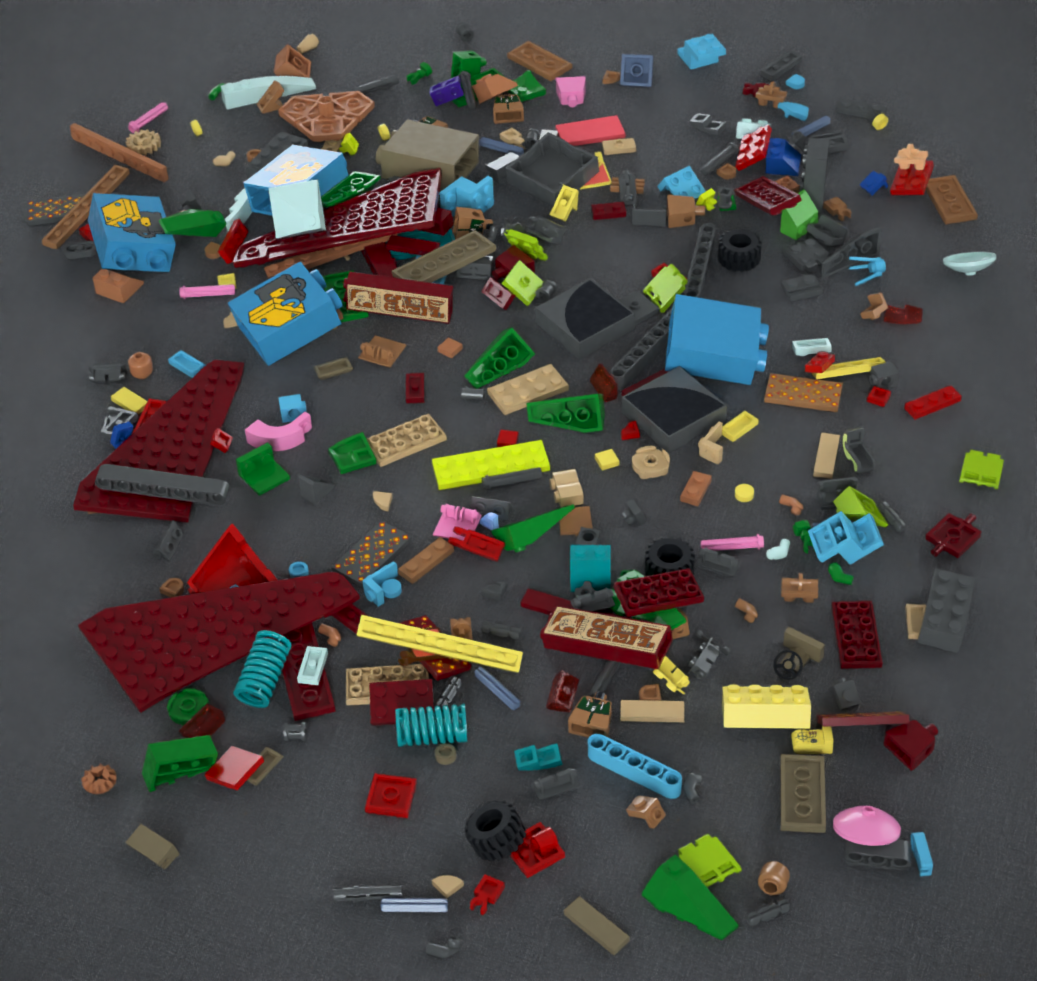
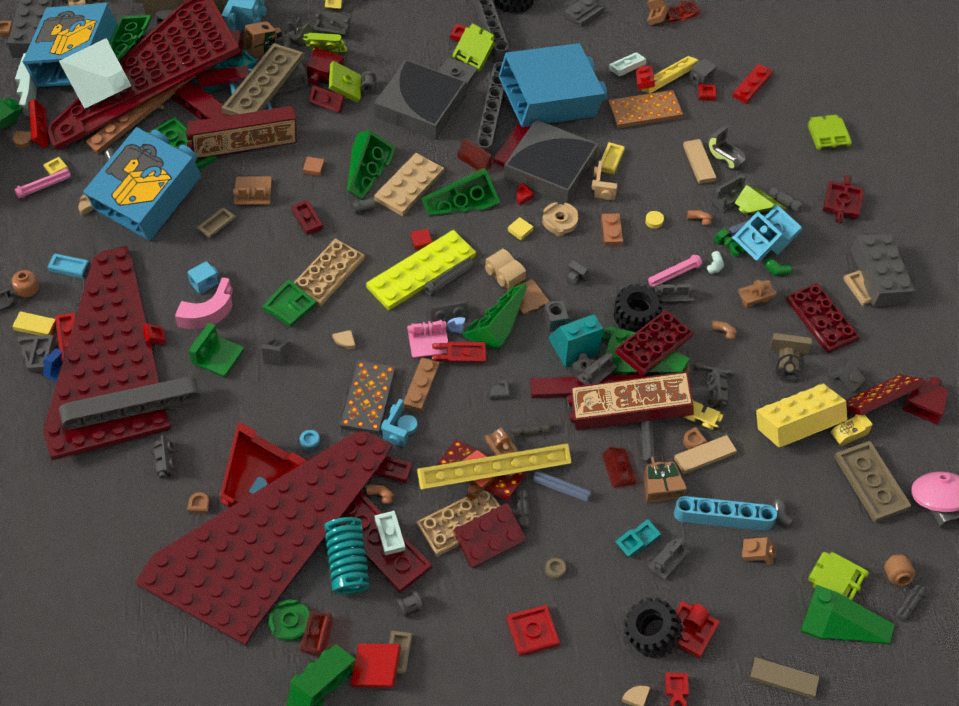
camera: 30 degrees left, 10 degrees up
(431, 725) = (532, 548): teal piece -> none

